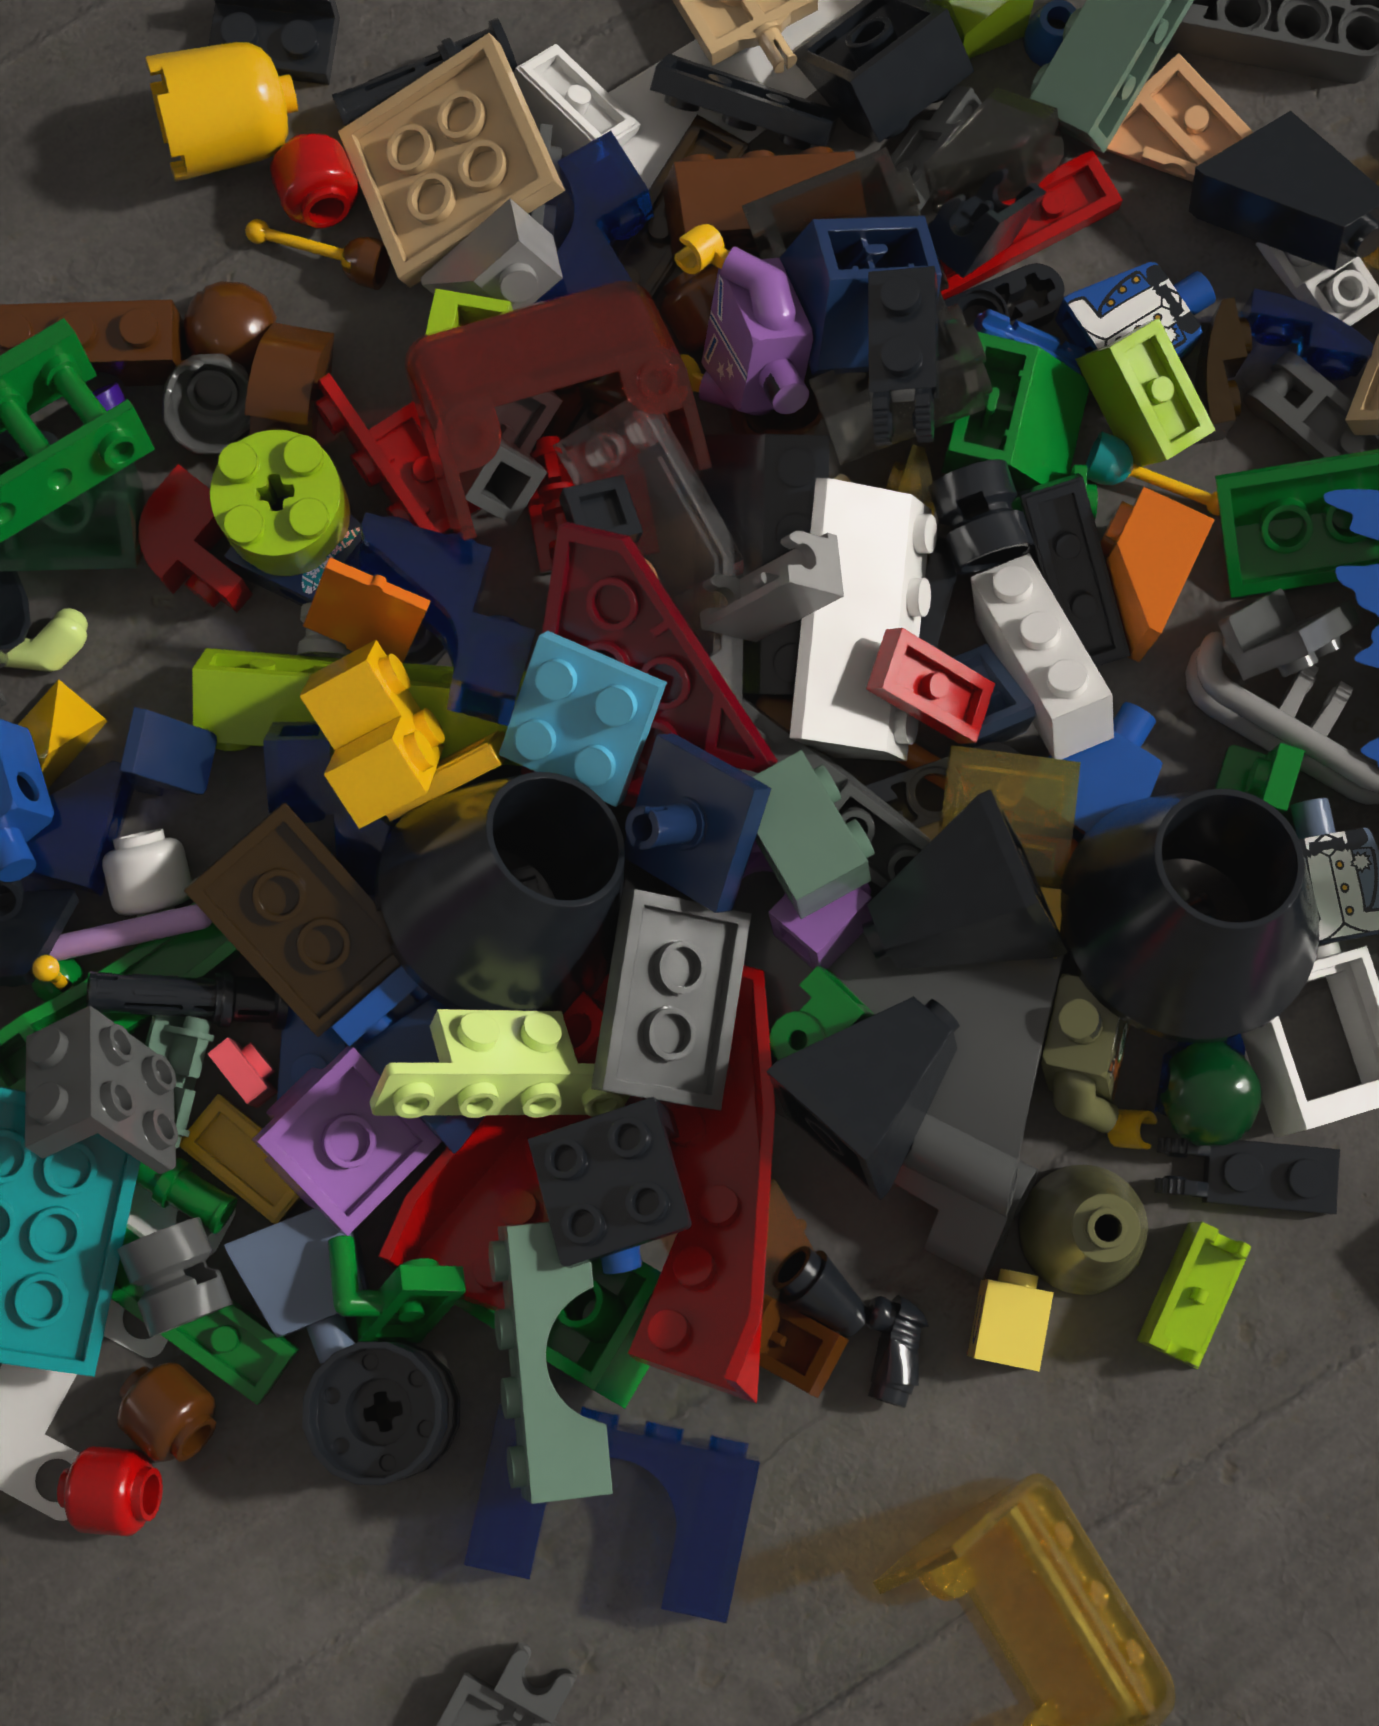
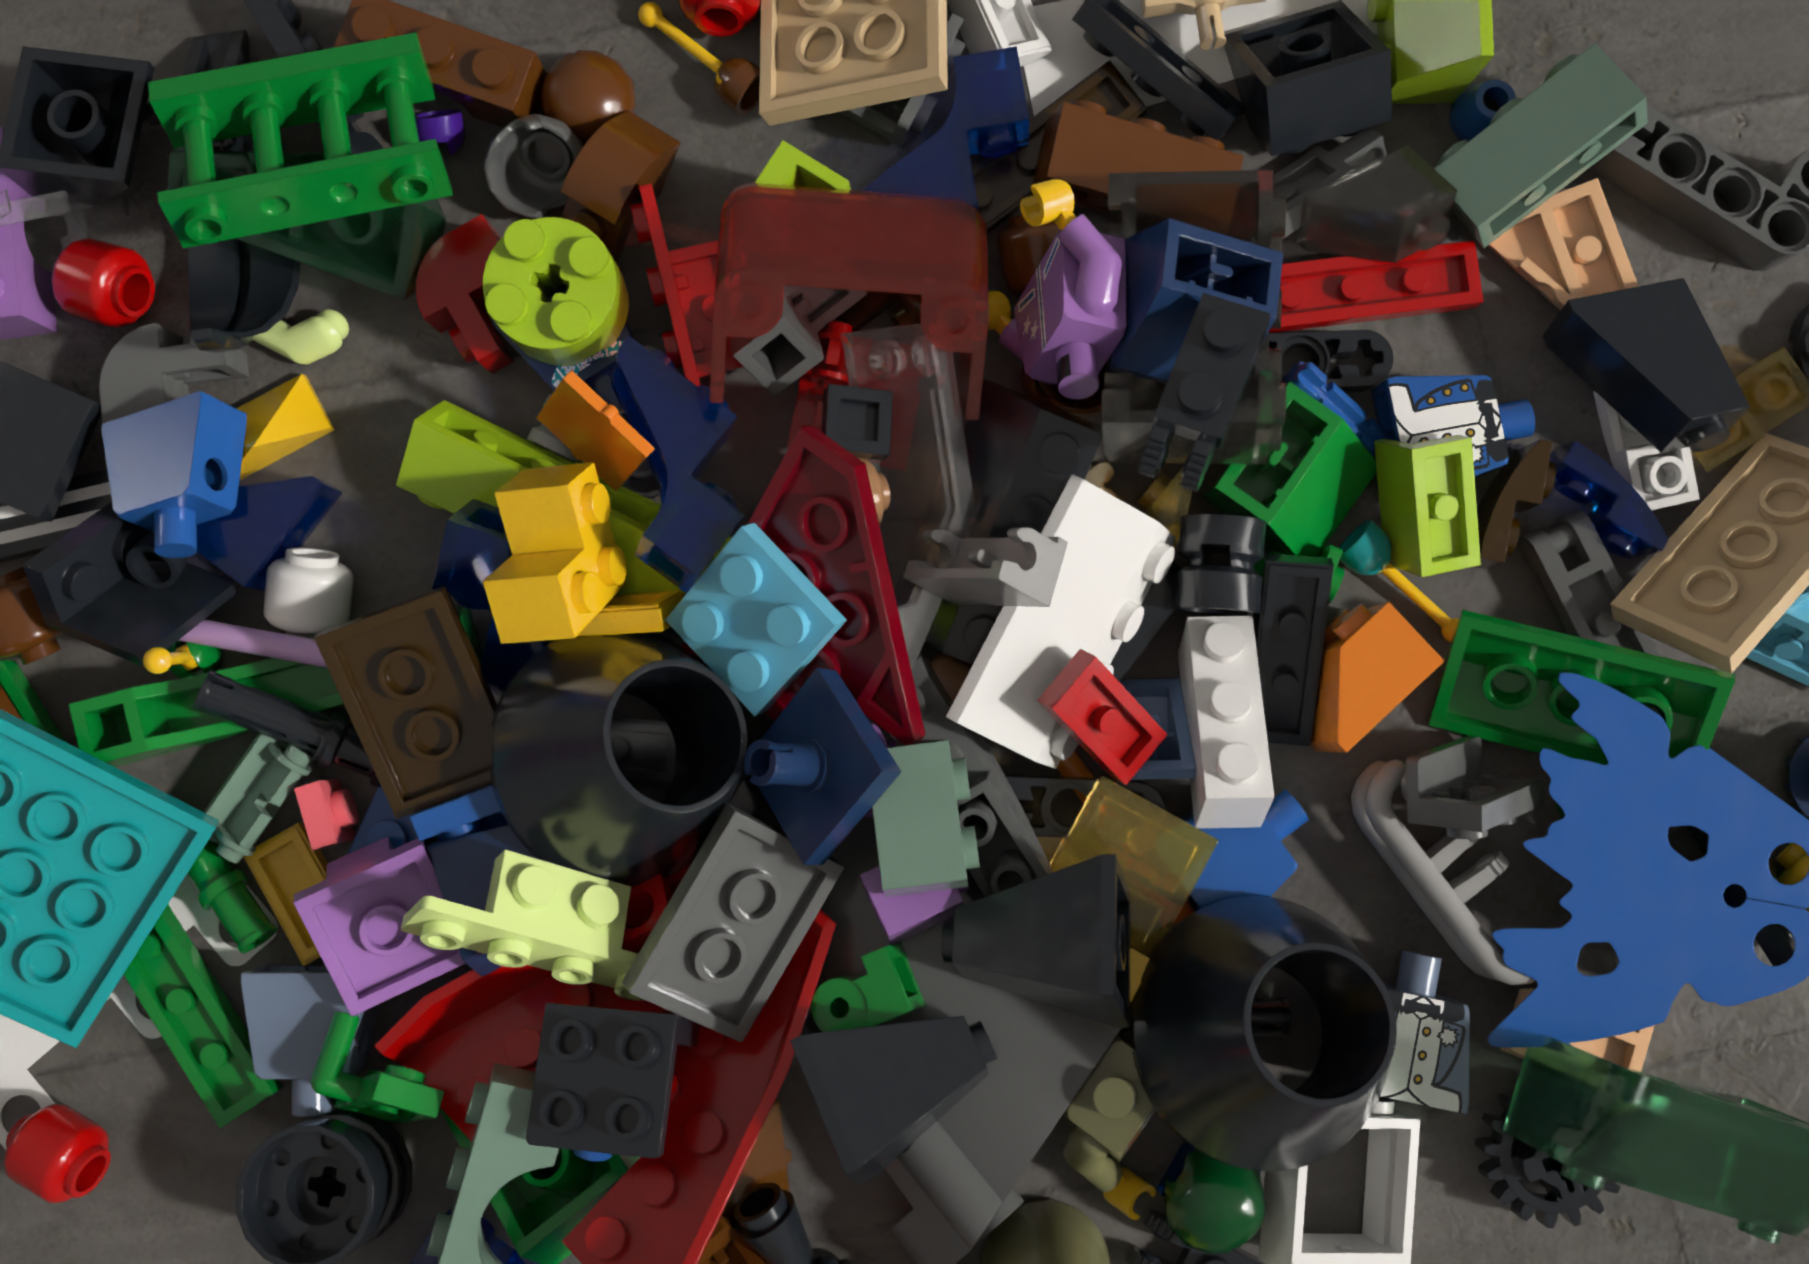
camera: 25 degrees right, 5 degrees up
(100, 1080) = (170, 793): dark grey bracket -> none
(166, 1412) = (135, 1101): reddish brown head -> none
(167, 754) = (361, 490): dark blue slope -> none
(174, 1276) = (179, 990): dark grey wheel -> none
(501, 259) = (860, 136): light grey slope -> none
(979, 228) = (1335, 277): black hinge -> none
(1260, 774) = (1382, 916): green bracket -> none

